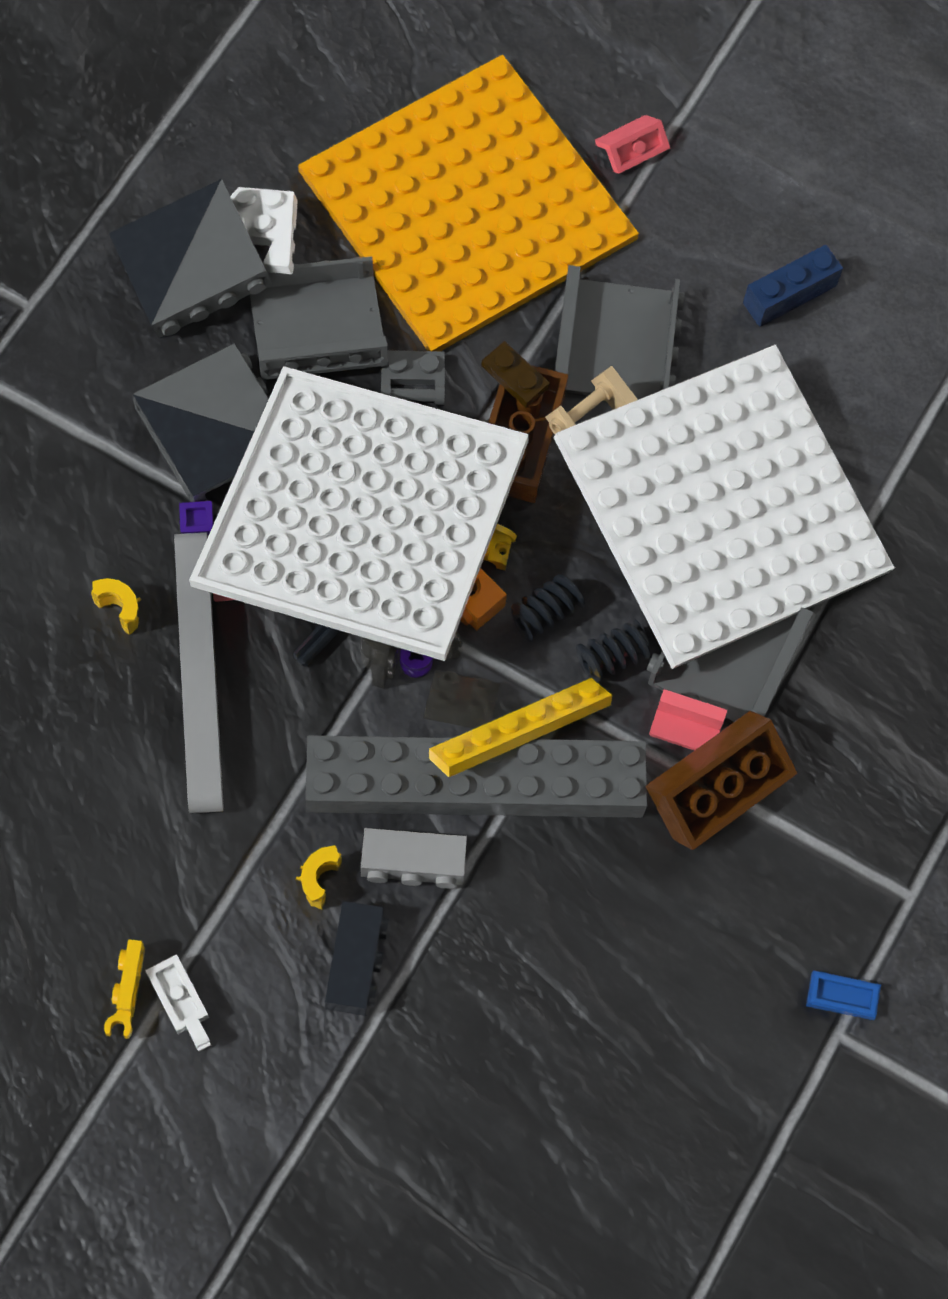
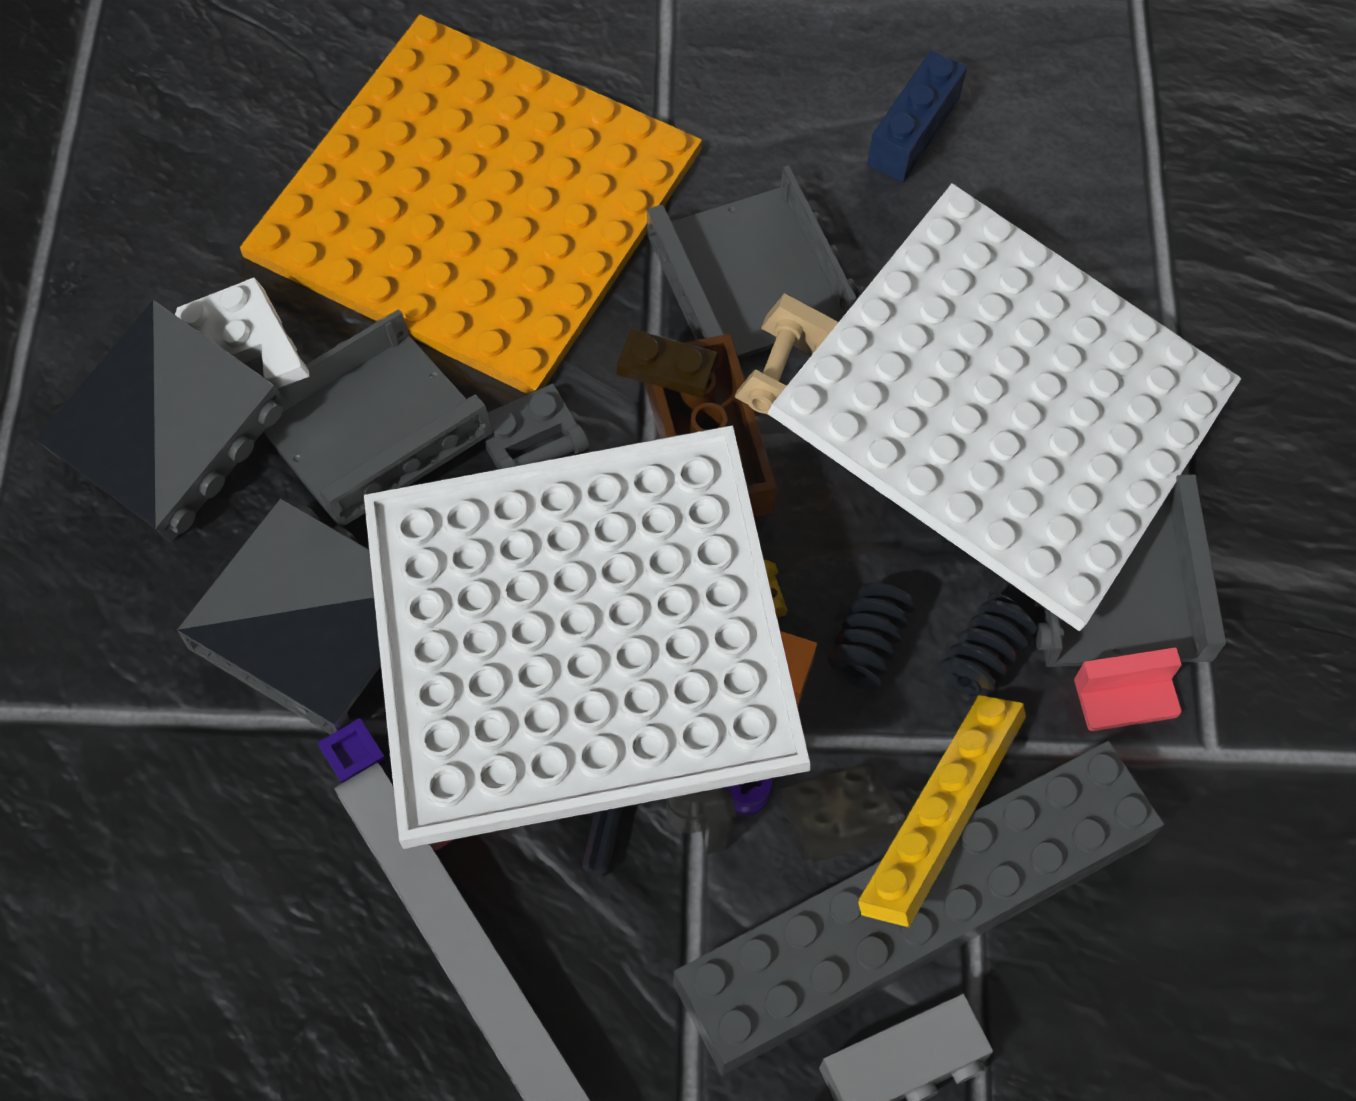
camera: 25 degrees left, 5 degrees down
(113, 591) = (300, 909): yellow piece -> none
(634, 143) = (634, 43): coral panel -> none
(721, 779) = (1229, 741): reddish brown brick -> none

